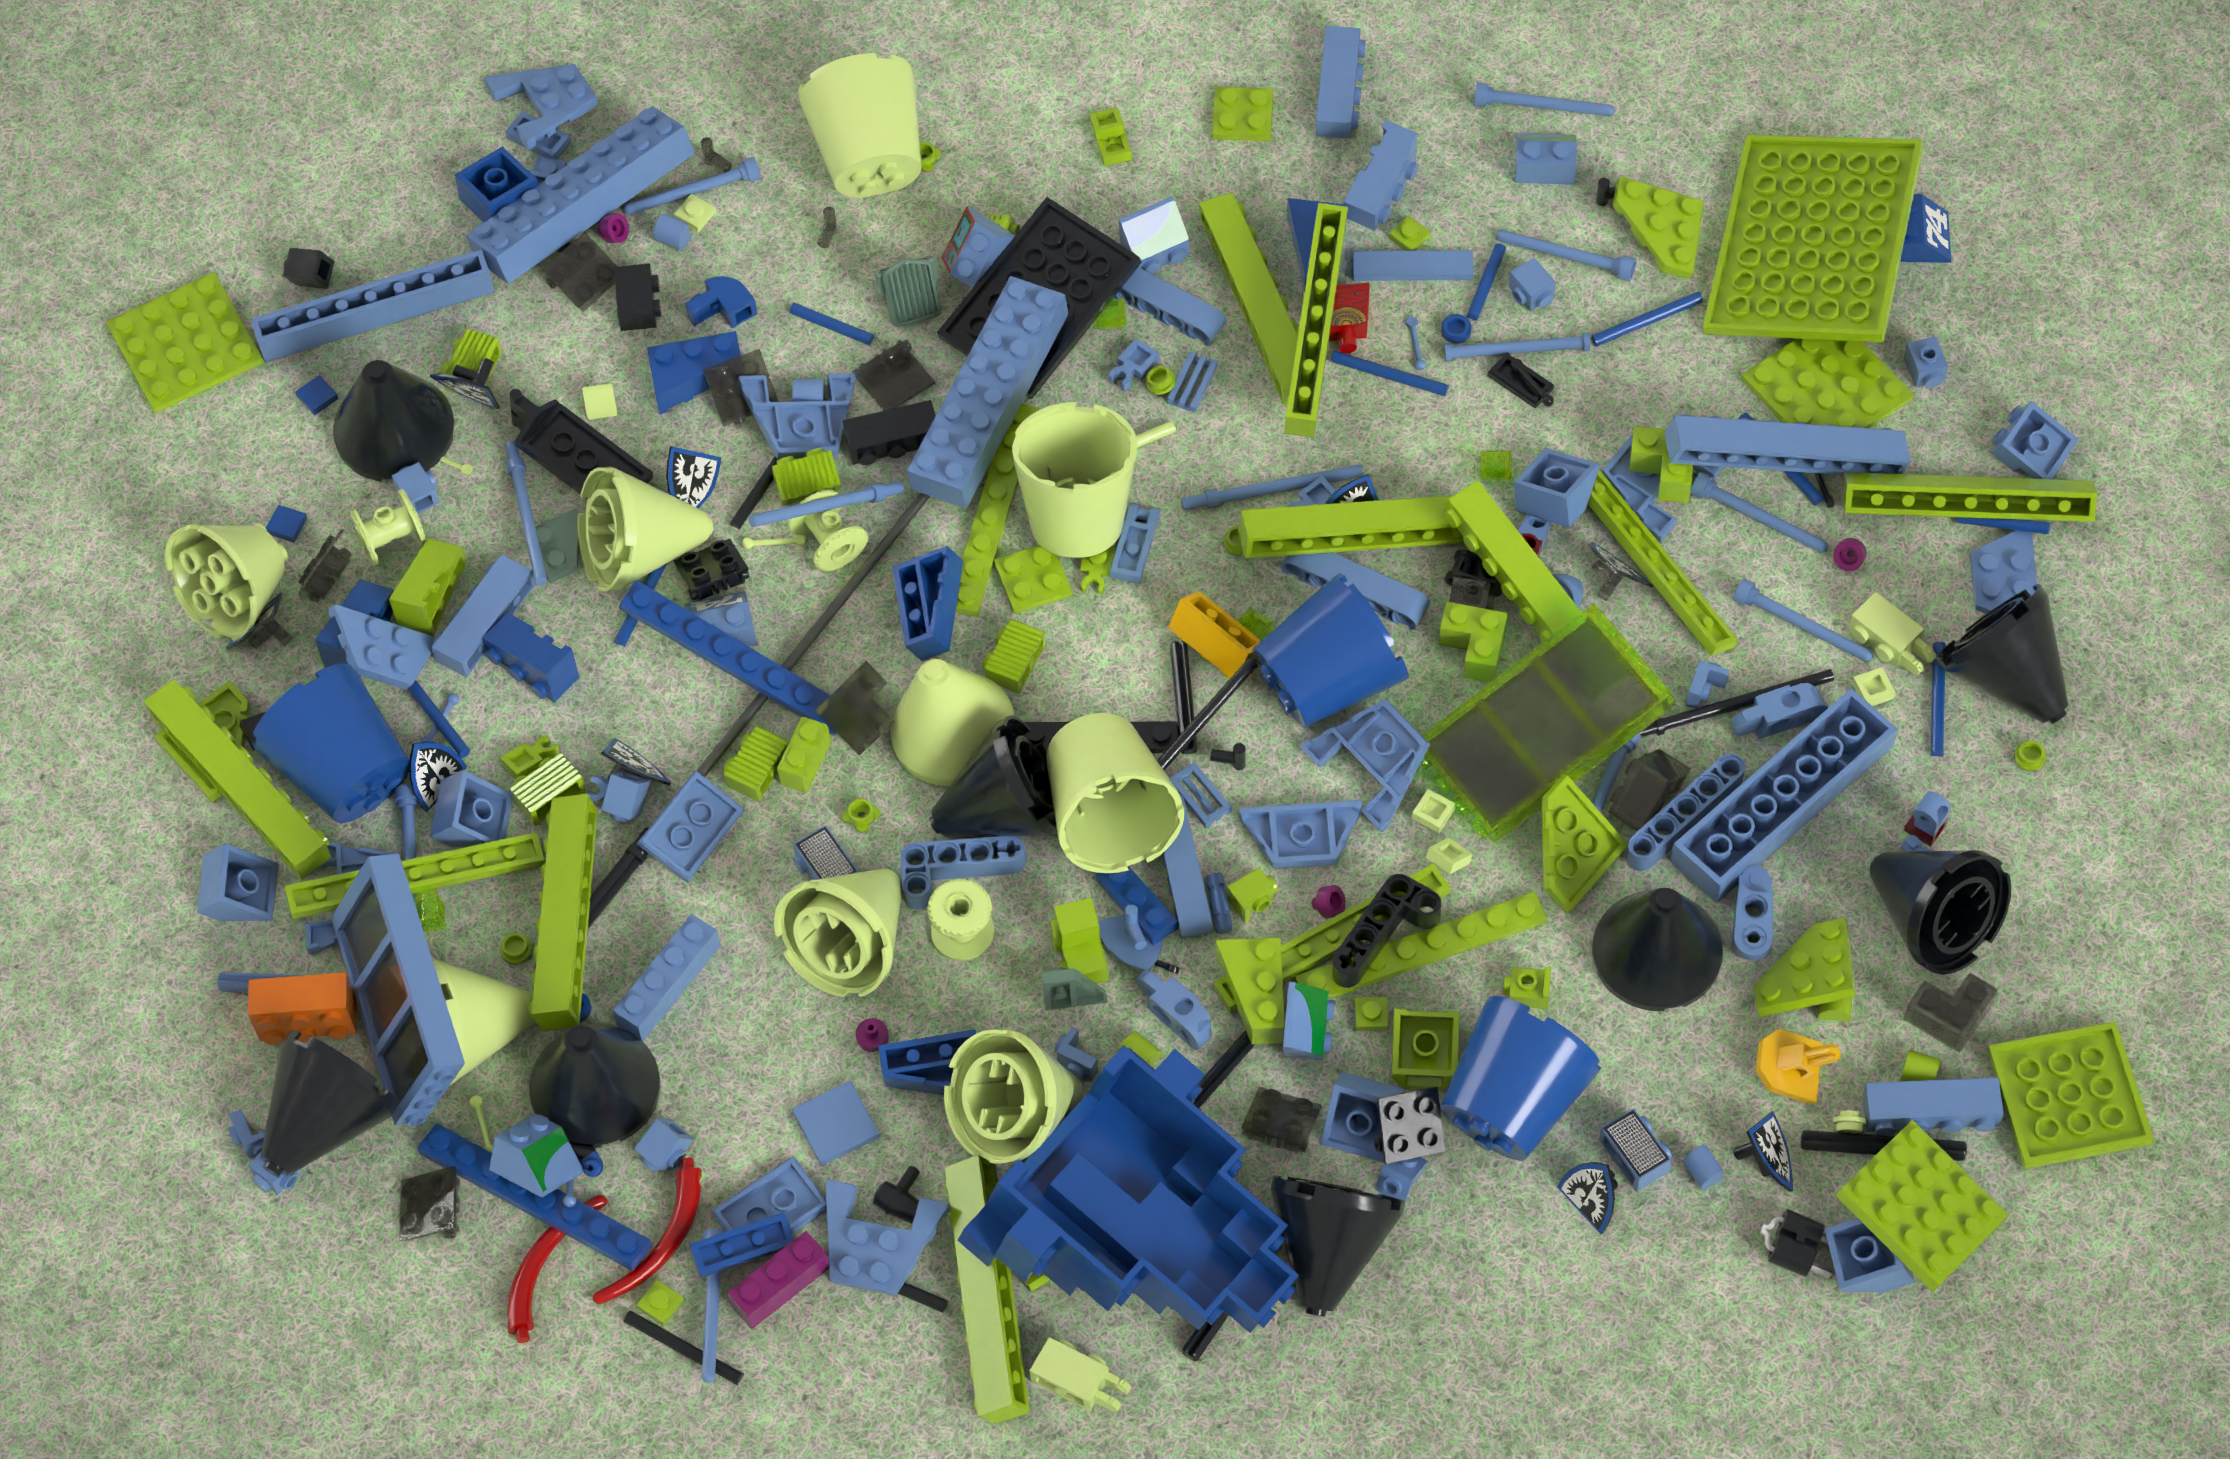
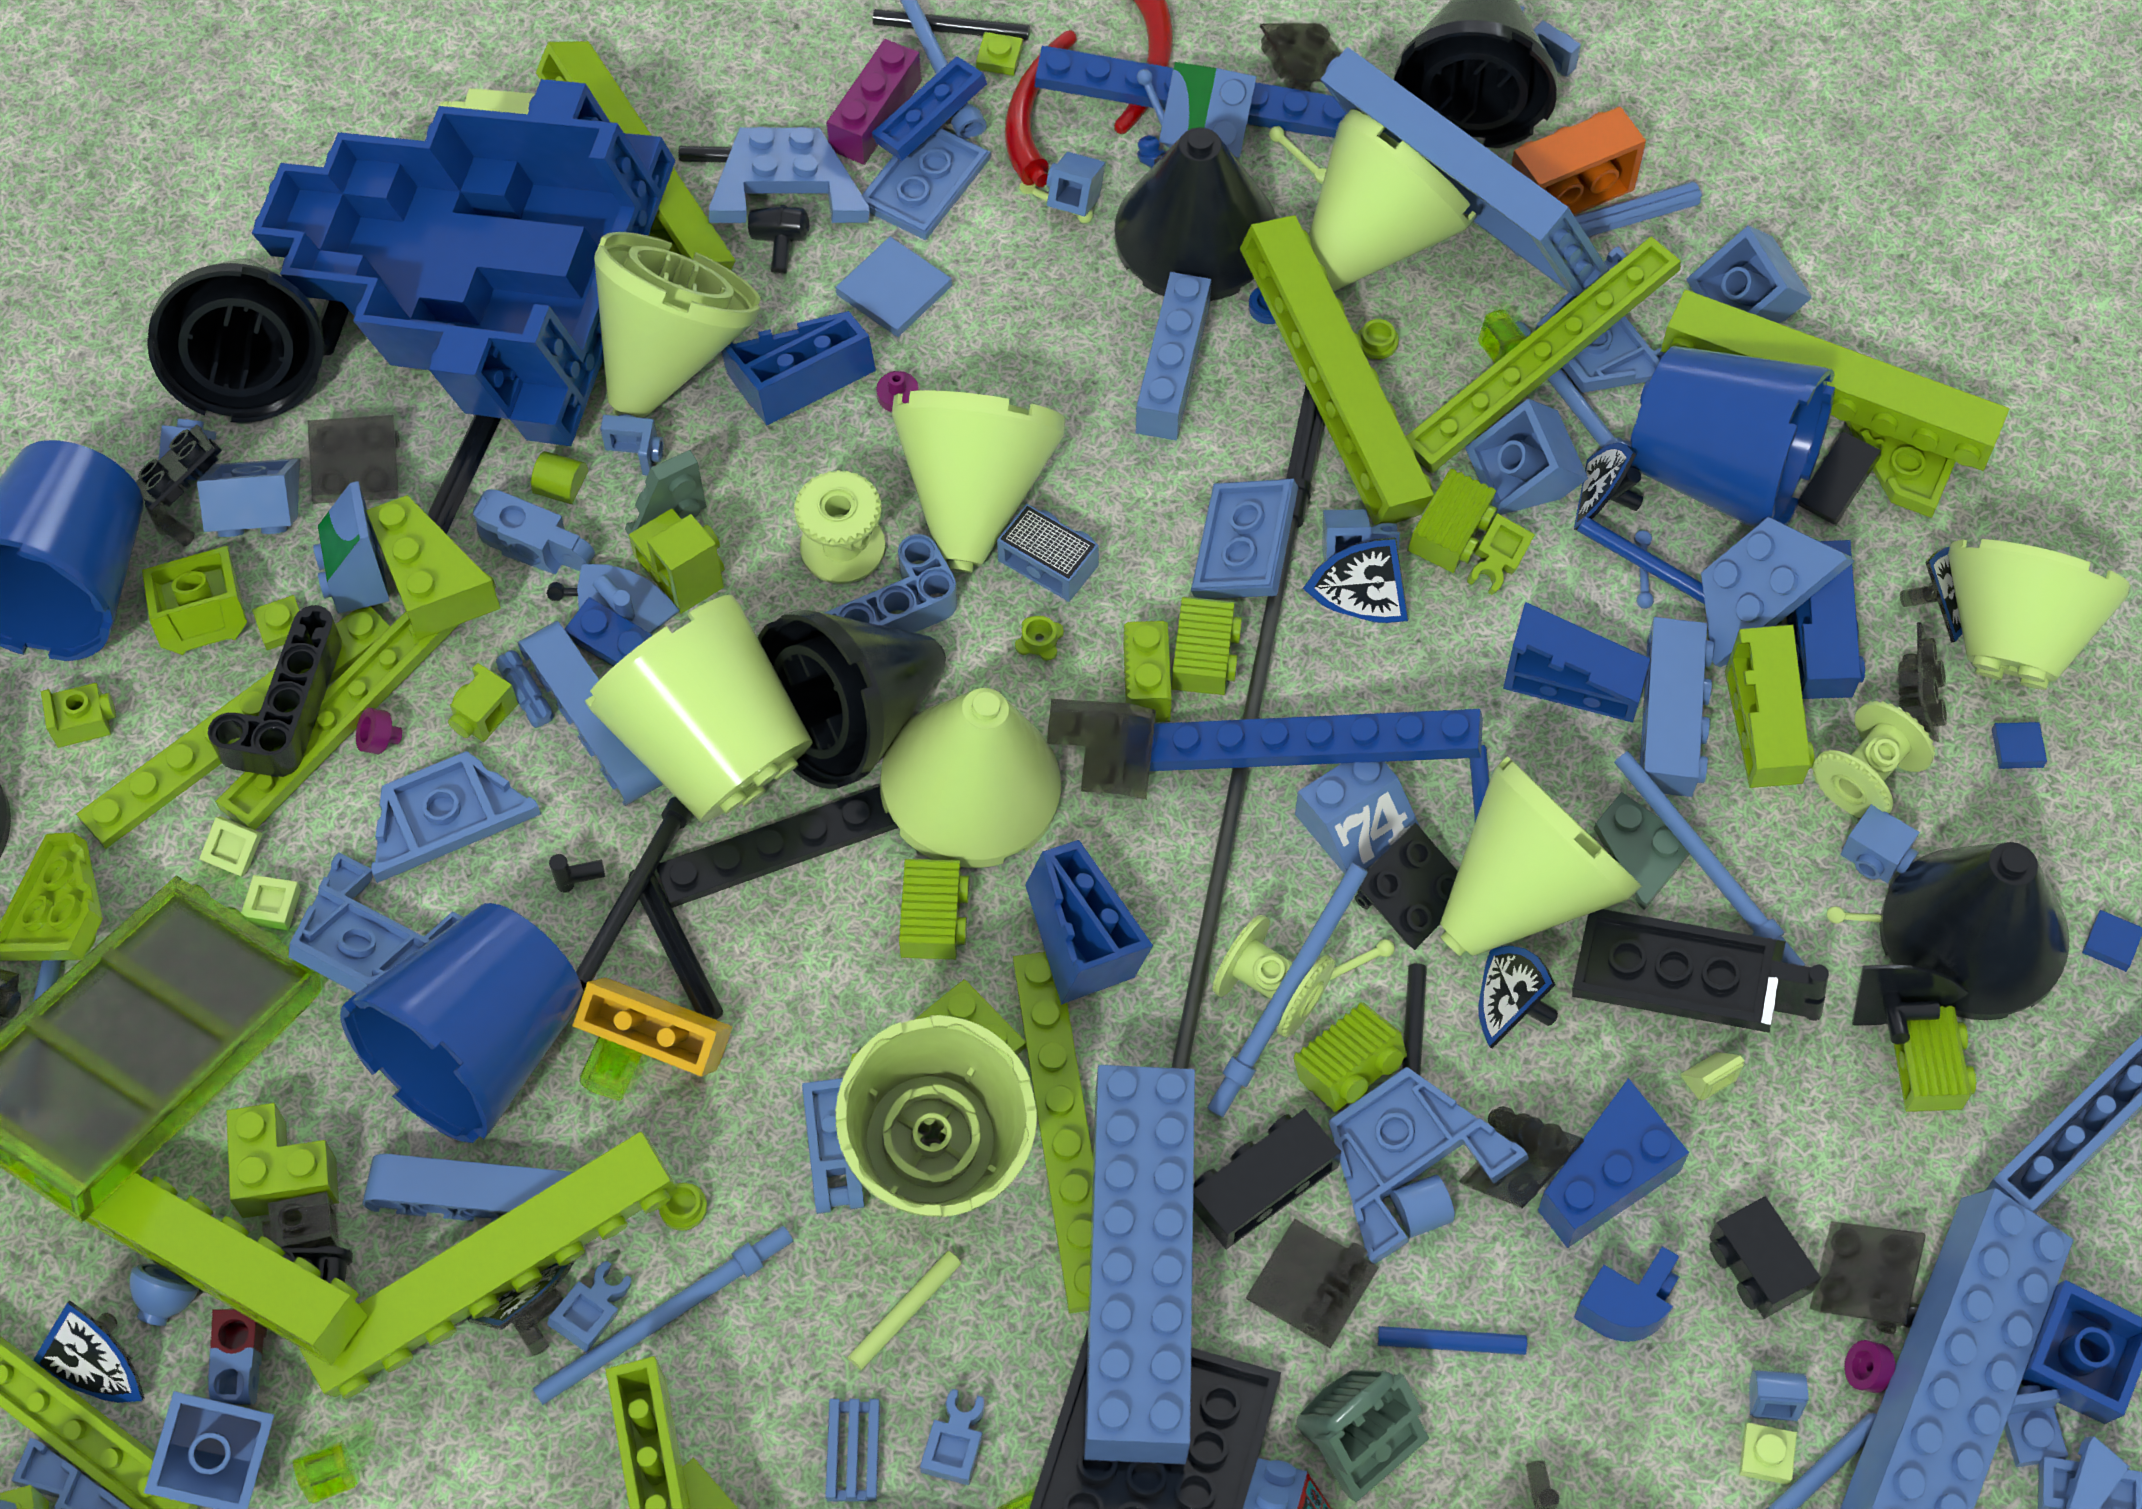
camera: 155 degrees right, 0 degrees up
(1160, 380) = (900, 1428): lime plate -> none
(1215, 815) = (631, 839): medium blue tile -> none

